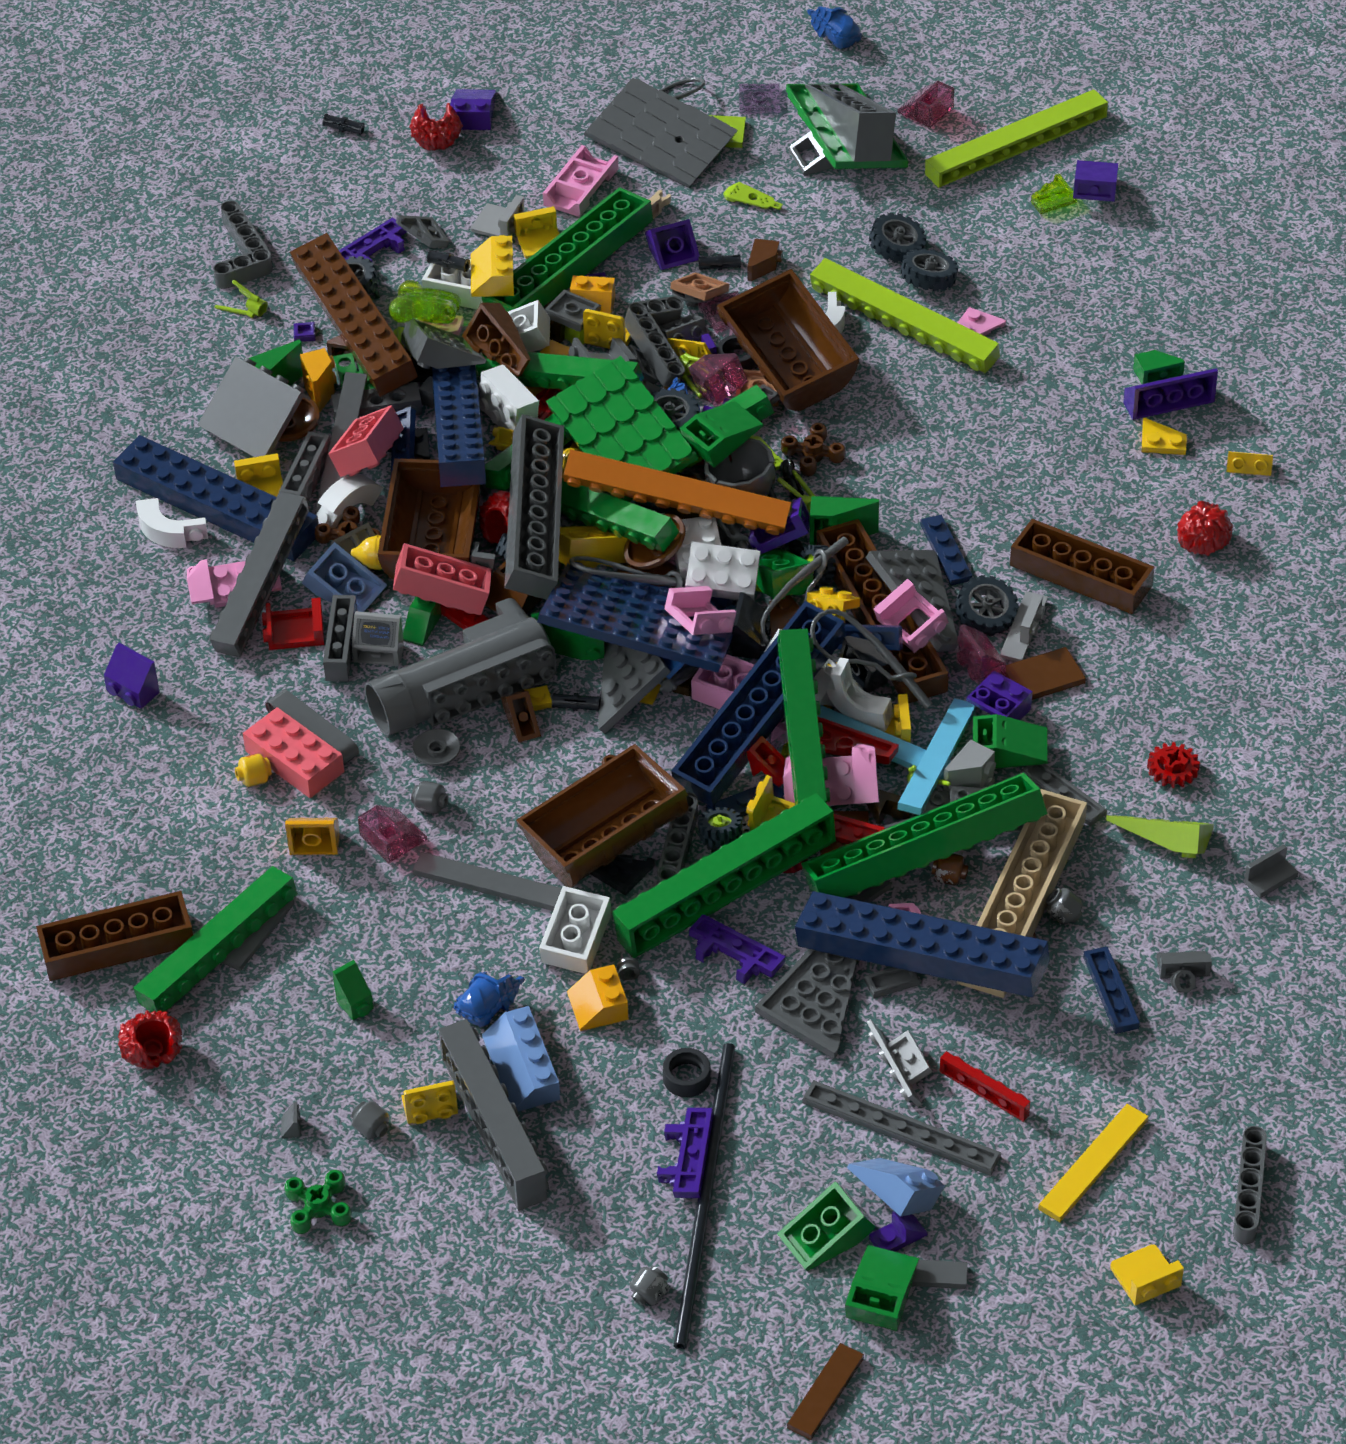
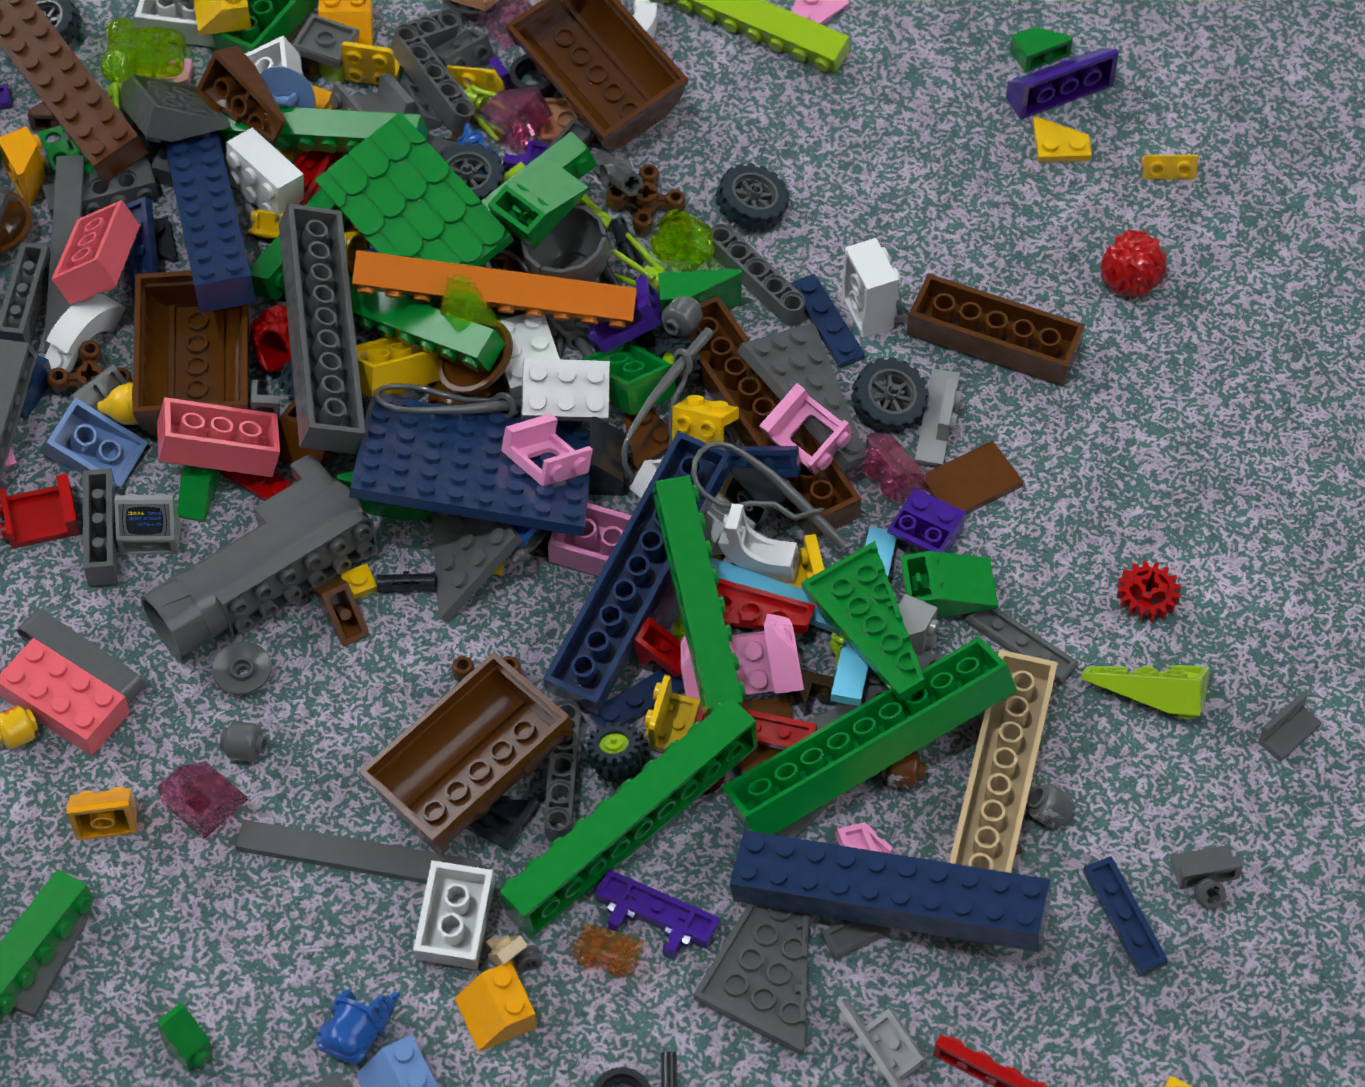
camera: 10 degrees left, 10 degrees up
(536, 337) = (289, 87): none -> medium blue shield
(611, 955) = (504, 948): none -> tan plate
(651, 496) = (466, 302): none -> clear neon green slope
(692, 970) = (607, 950): none -> clear orange bracket
(791, 425) = (617, 173): none -> dark grey piece
(825, 528) = (682, 316): none -> dark grey head
(836, 477) = (682, 241): none -> clear neon green brick
(893, 451) = (757, 187): none -> black wheel
(894, 510) = (758, 275): none -> dark grey beam
(937, 750) = (866, 613): none -> green wing
(983, 523) = (870, 287): none -> white brick

